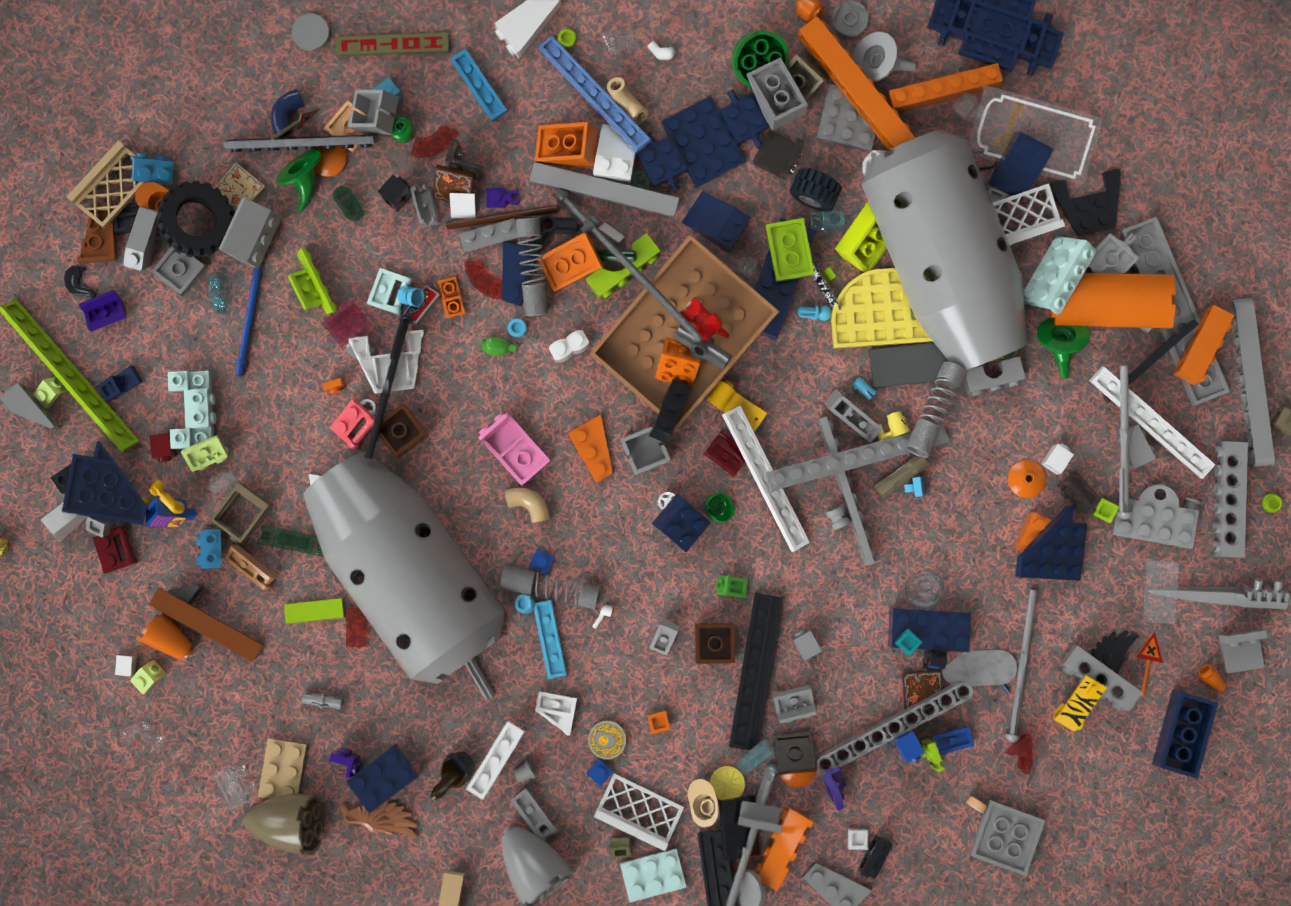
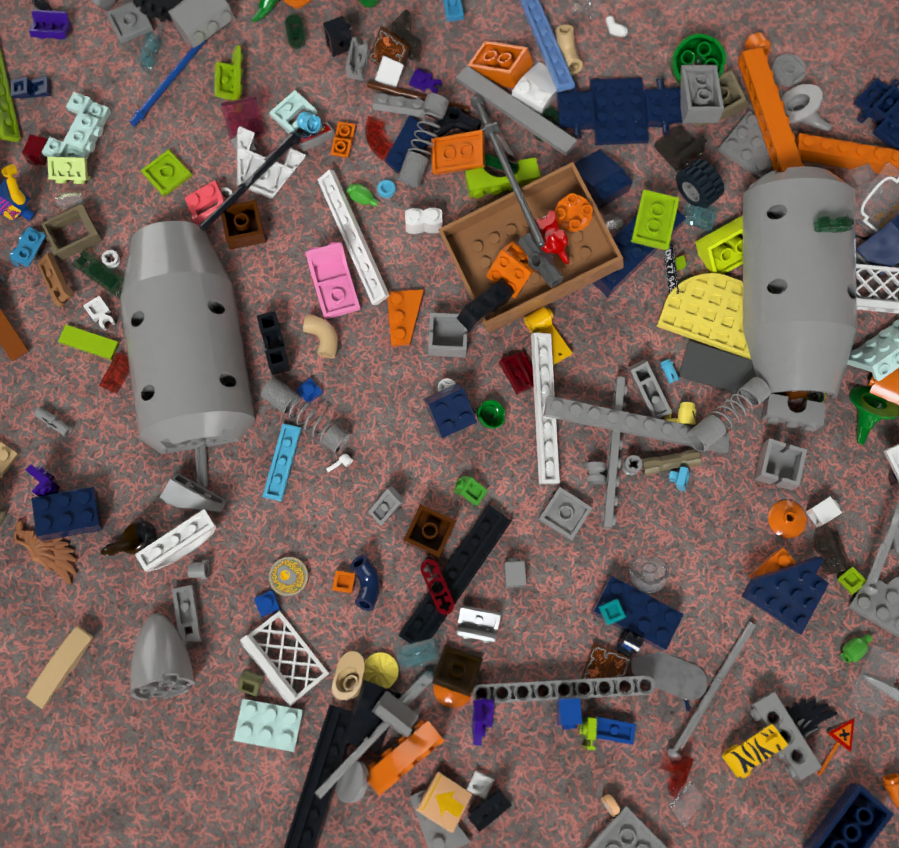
camera: 25 degrees right, 10 degrees down
(287, 525) = (109, 253): none -> white bush
(298, 410) = (166, 173): none -> lime tile
(307, 577) = (99, 311): none -> white plate
(334, 386) = (206, 165): orange plate -> none
(433, 144) = (385, 17): clear red tile -> none
(481, 710) = (188, 494): none -> light grey slope
(488, 533) = (273, 342): none -> black arch
(509, 393) = (353, 237): none -> white plate
(524, 604) = (275, 420): medium azure tile -> none
(557, 709) = (256, 527): white wing -> none
(681, 712) = (369, 582): none -> dark blue cylinder
(713, 287) = (573, 213): none -> orange dish
(758, 695) = (448, 598): none -> dark red beam
(814, 312) = (660, 293): medium azure axle -> none
(827, 568) = (565, 514): none -> light grey plate
(834, 869) = (444, 802): none -> light nougat tile
(873, 494) = (632, 459): none -> light grey bush
(954, 198) = (837, 225): none -> clear green plate
(1001, 435) = (780, 467): none -> light grey piece
(1132, 570) = (855, 648): none -> bright green plant

